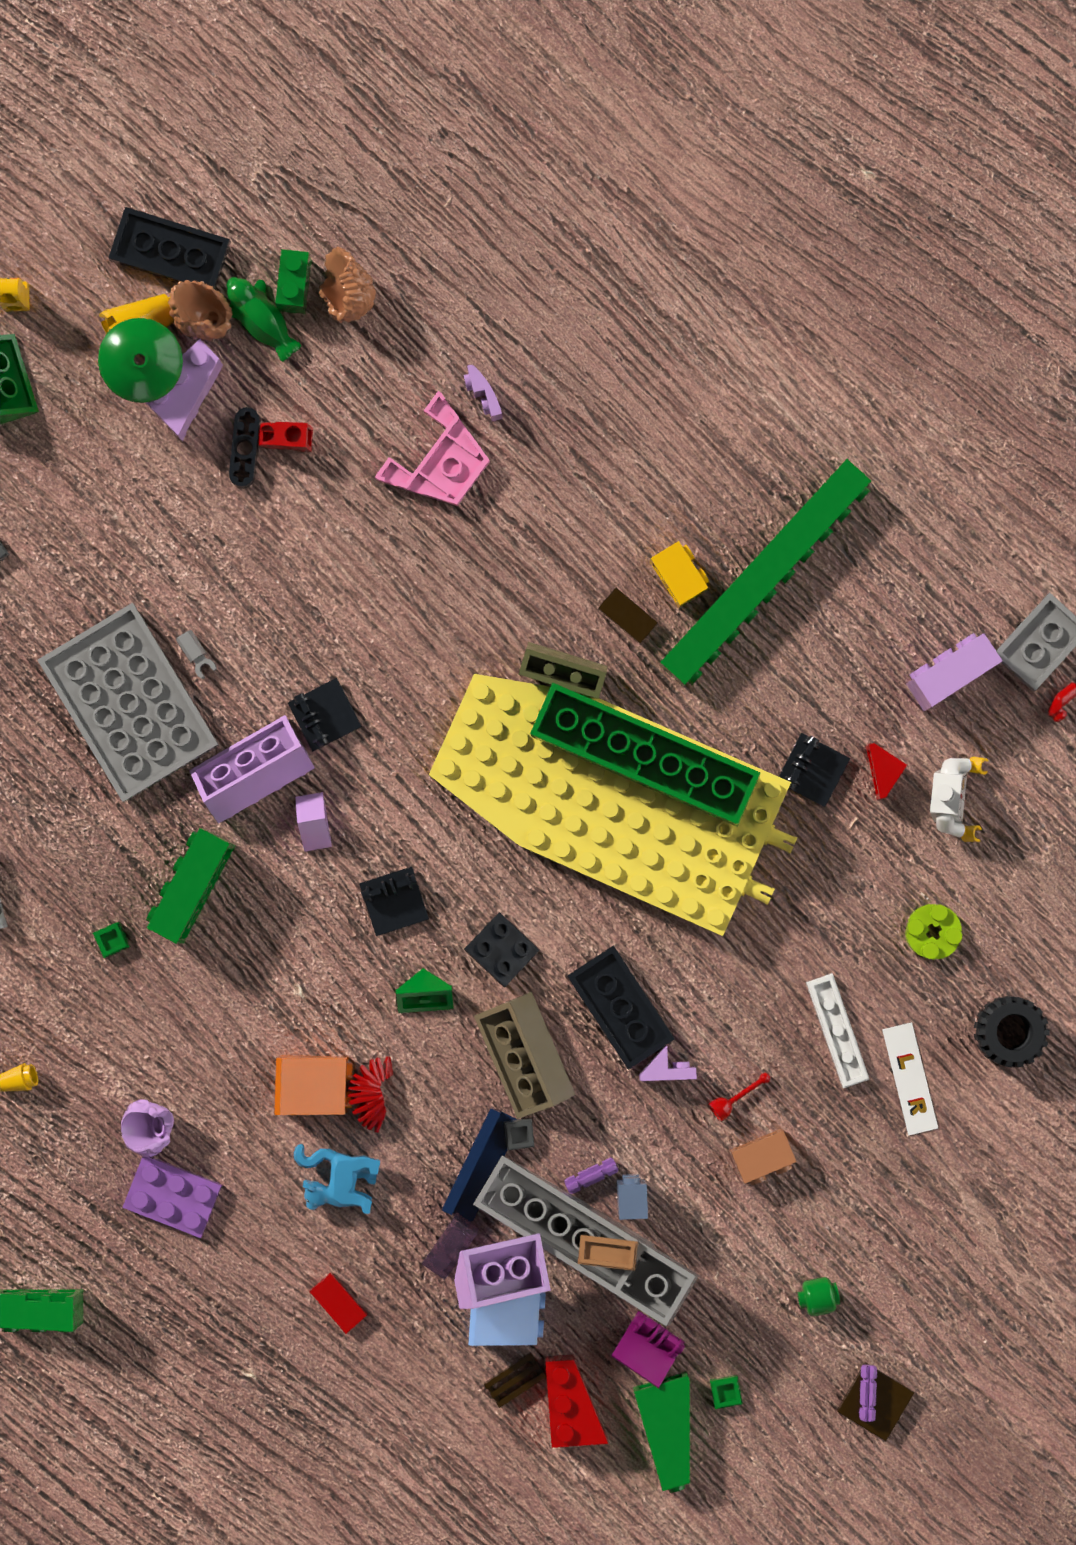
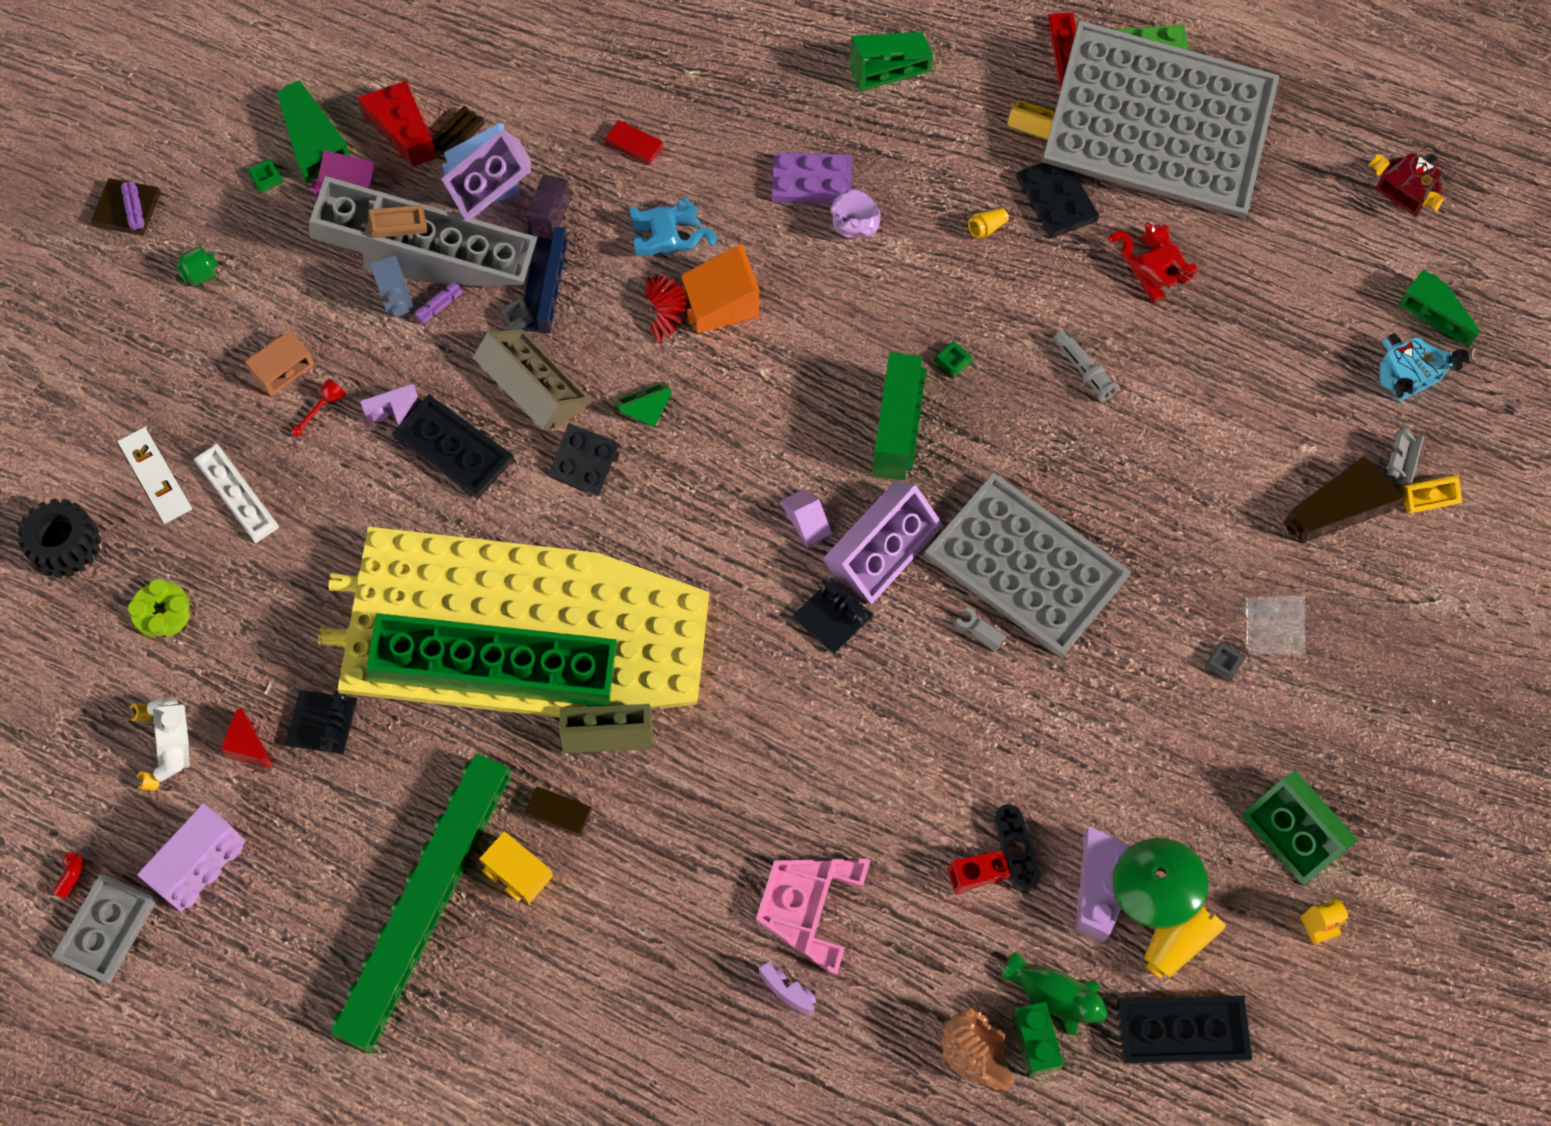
camera: 160 degrees right, 20 degrees down
(197, 308) = (1127, 965): nougat piece -> none
(394, 901) = (702, 471): black hinge -> none

